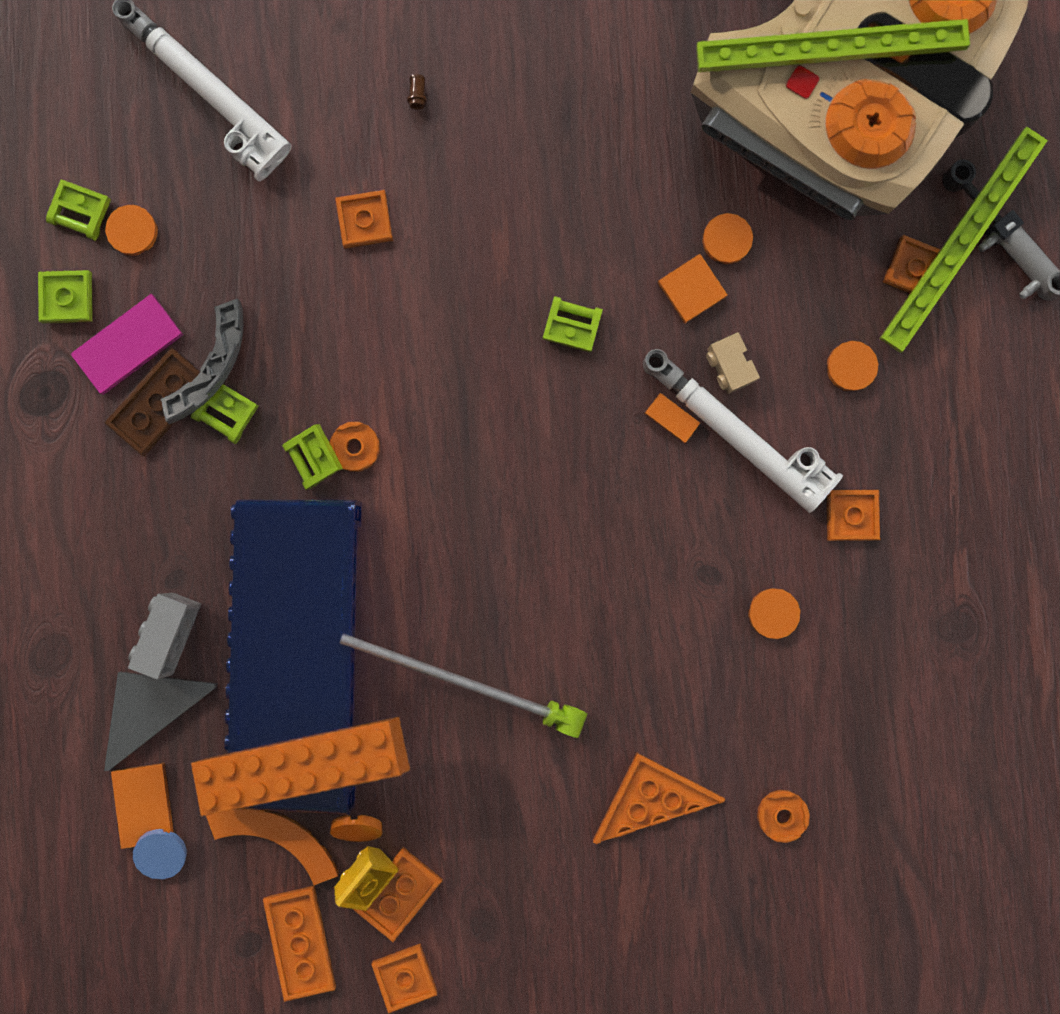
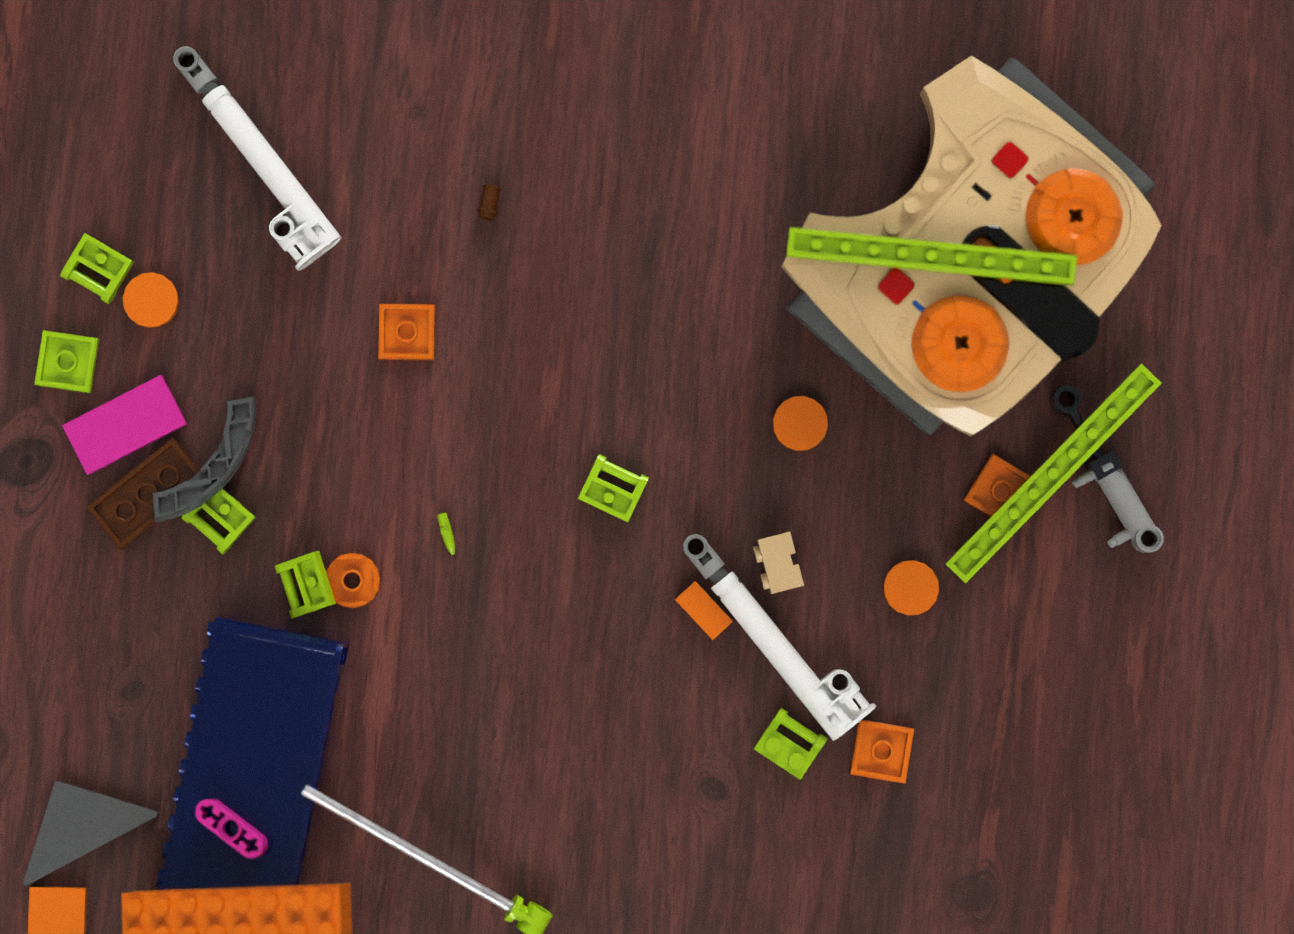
camera: 10 degrees right, 0 degrees up
(163, 635) = (113, 750): light grey brick -> none
(270, 686) = (252, 833): none -> dark pink beam
(431, 389) = (446, 532): none -> lime helmet
(692, 288) = (751, 471): orange tile -> none
(769, 531) = (786, 752): none -> lime plate
(774, 613) = (776, 843): orange tile -> none

